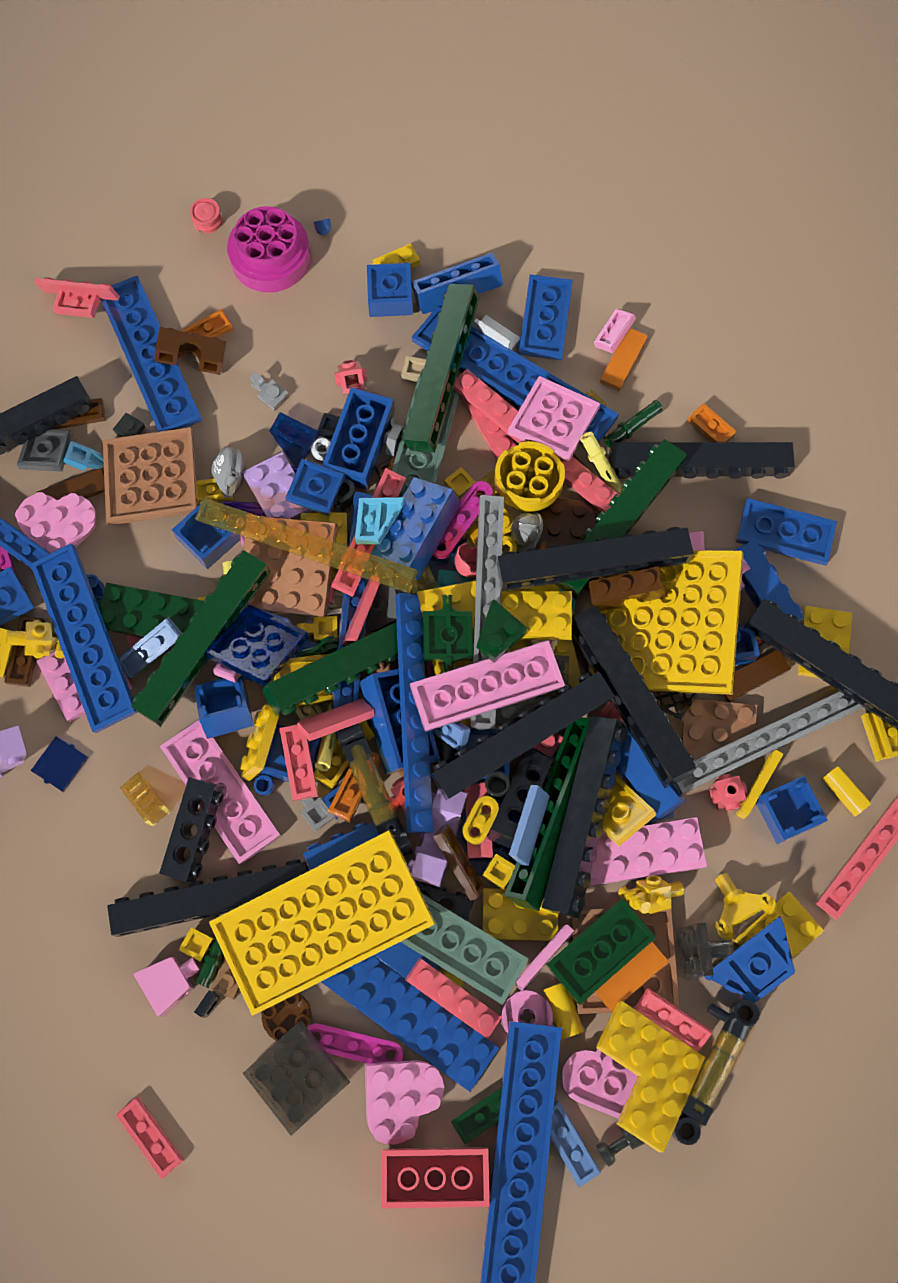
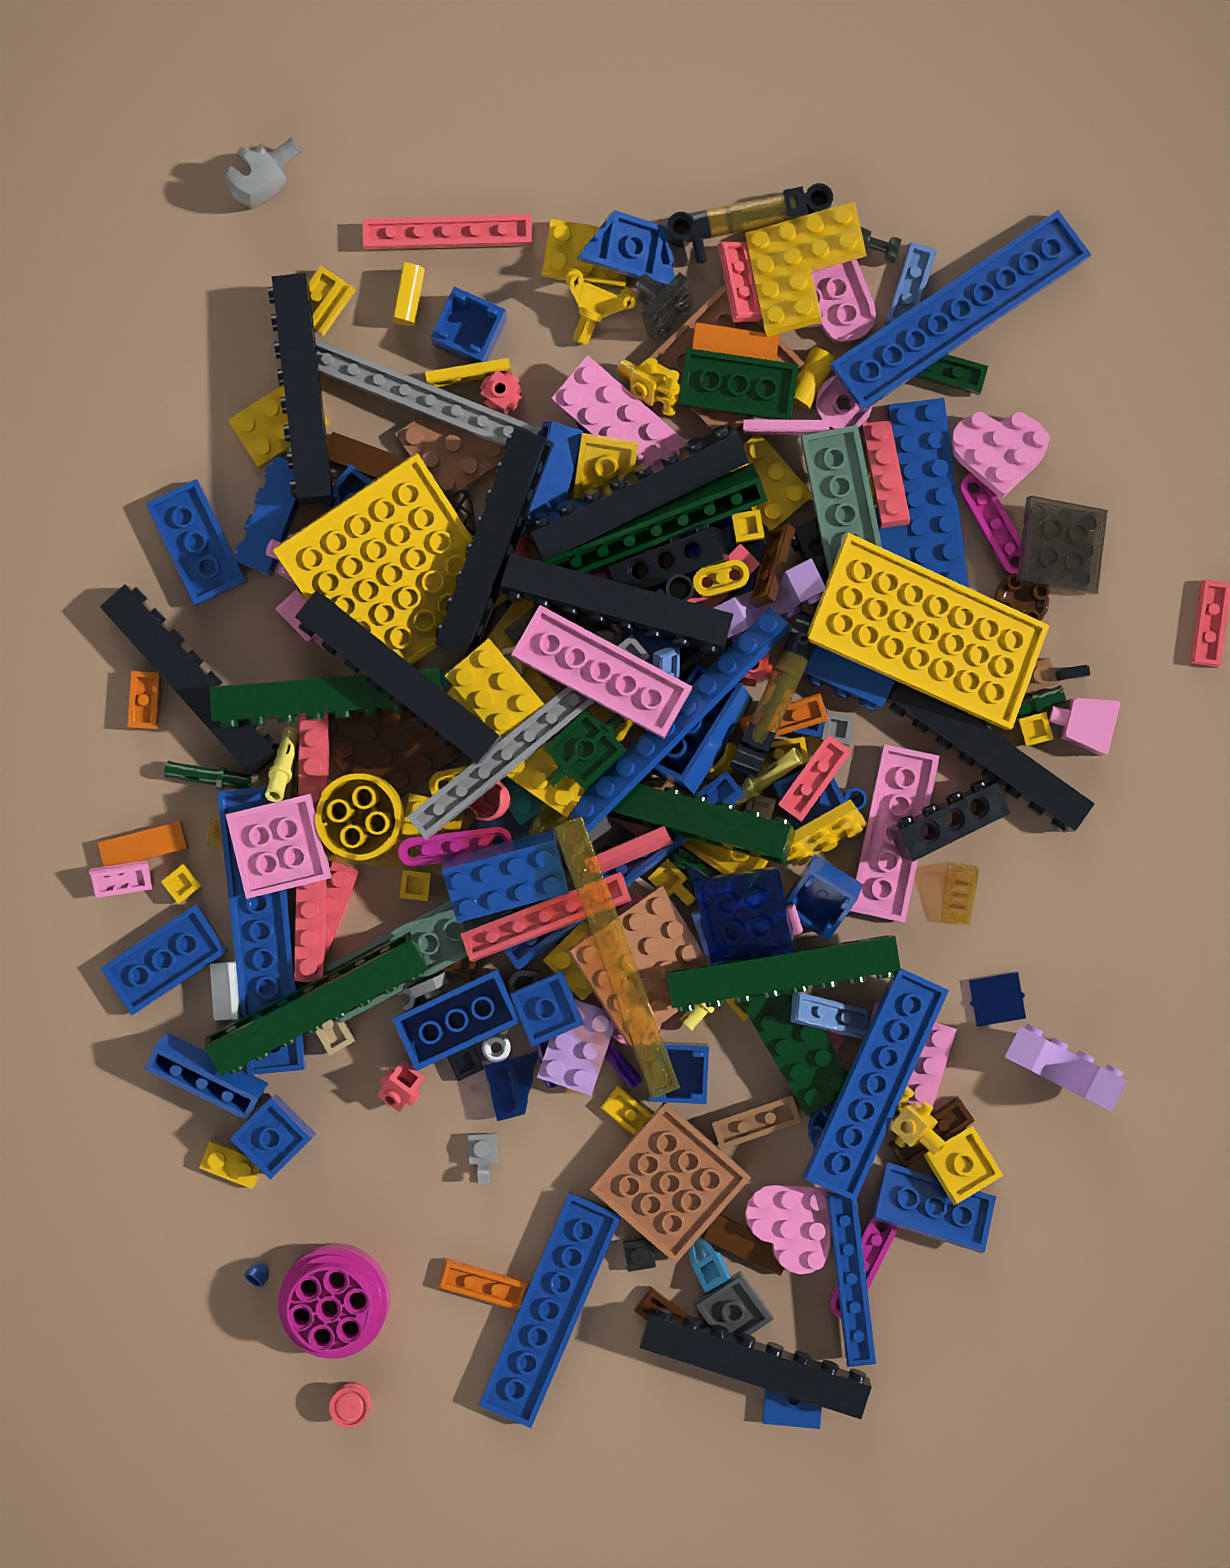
camera: 135 degrees left, 15 degrees up
(75, 297) = (560, 1439): coral bracket -> none
(134, 554) = (756, 1122): none -> medium nougat plate
(174, 343) = (496, 1250): reddish brown arch -> none
(228, 470) = (598, 1114): light grey hat -> none
(335, 719) = (749, 779): coral tile -> none
(376, 518) = (532, 916): medium azure wing -> none
(434, 1177) = (1034, 366): coral brick -> none
(499, 632) = (544, 703): dark green wing -> none
(527, 530) = (413, 774): light grey piece -> none
(529, 825) = (691, 529): medium blue tile -> none
(581, 360) = (181, 883): none -> yellow plate
(641, 584) = (394, 628): reddish brown arch -> none

